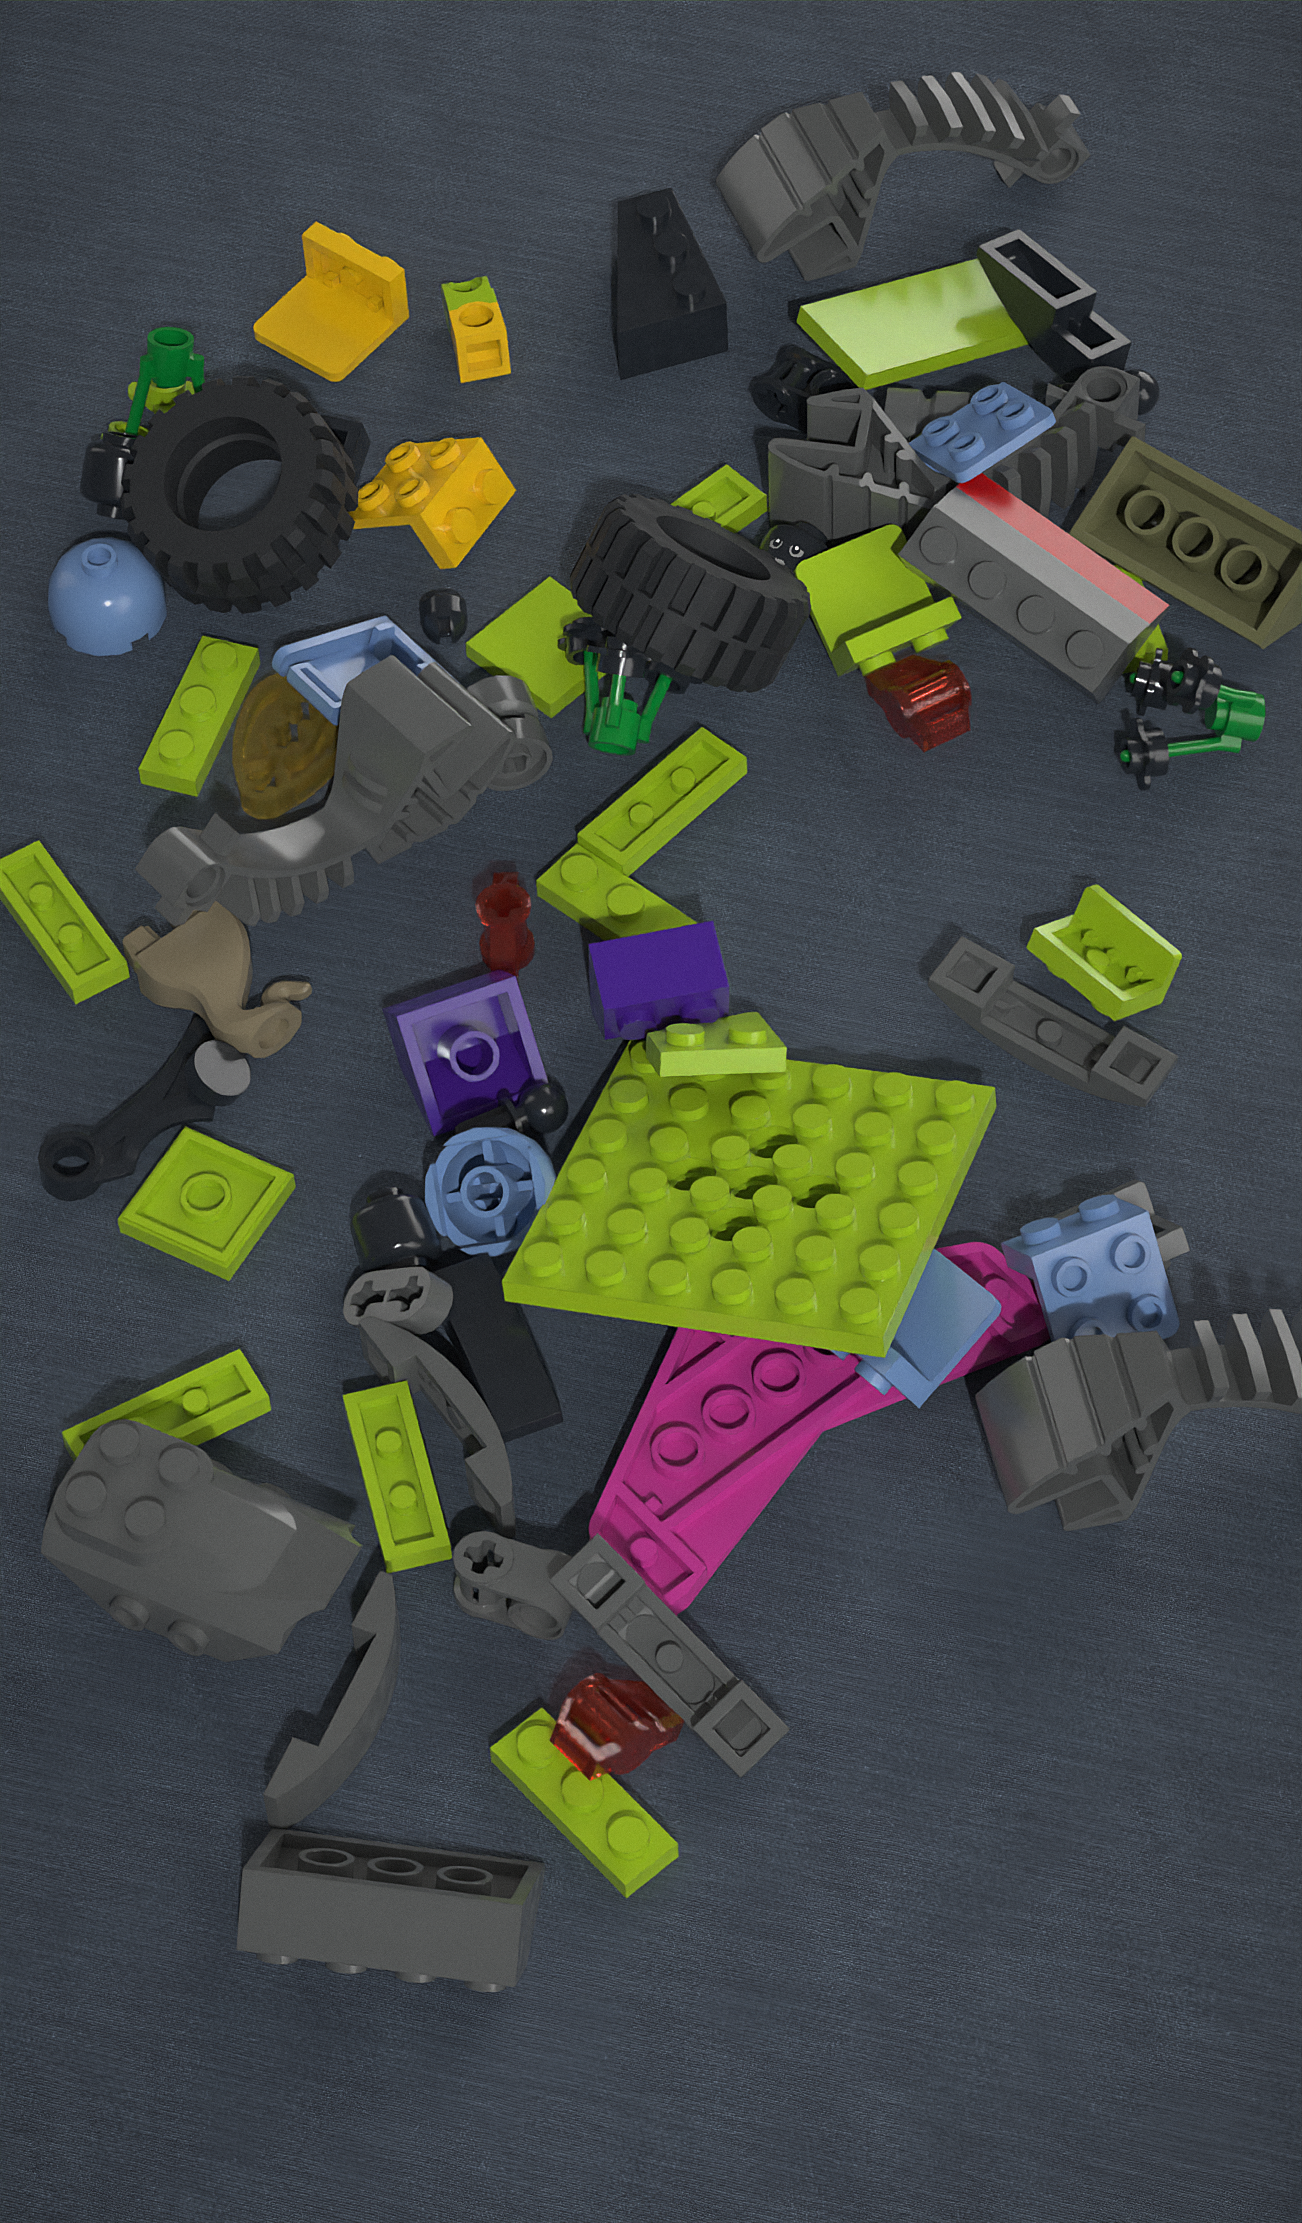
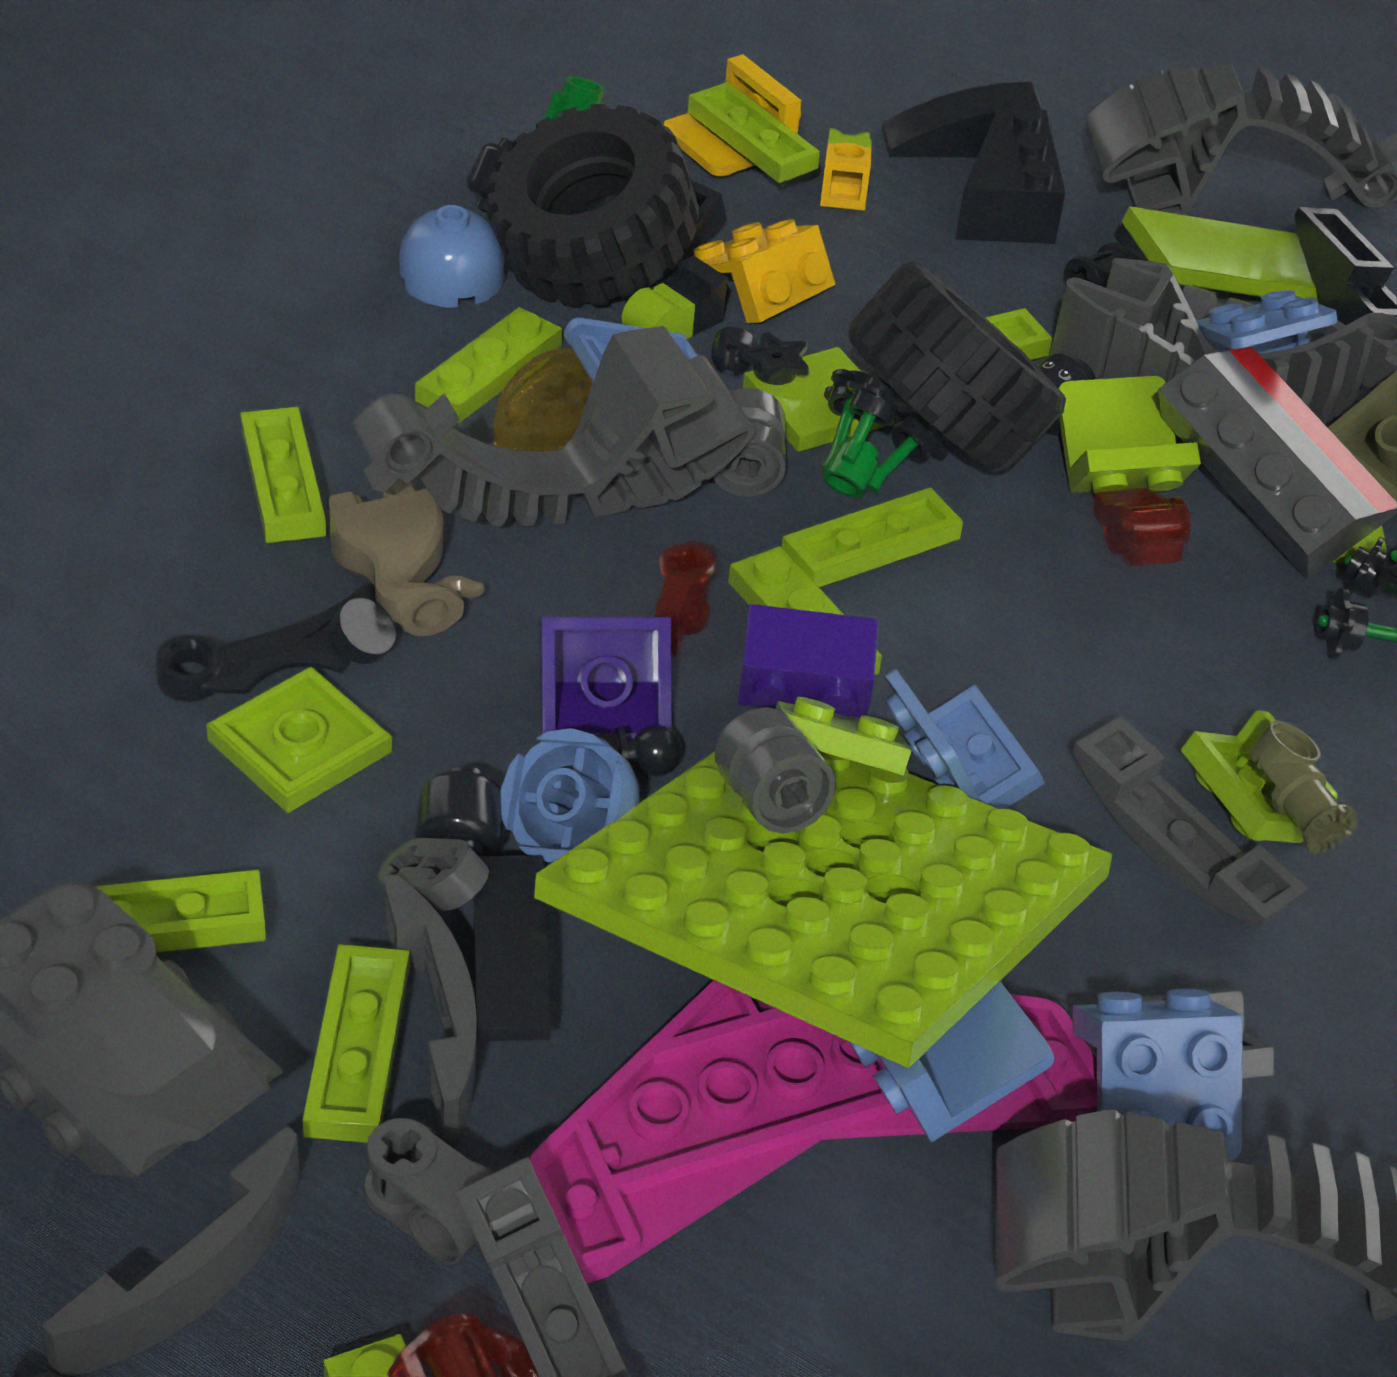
camera: 10 degrees right, 10 degrees down
(360, 318) = (753, 132): none -> lime plate
(367, 577) = (681, 304): none -> leg
(495, 633) = (776, 360): none -> black plate
(574, 220) = (953, 122): none -> black slope
(673, 1112) = (774, 770): none -> dark grey wheel
(828, 1013) = (965, 745): none -> medium blue bracket
(1146, 957) = (1300, 788): none -> olive connector

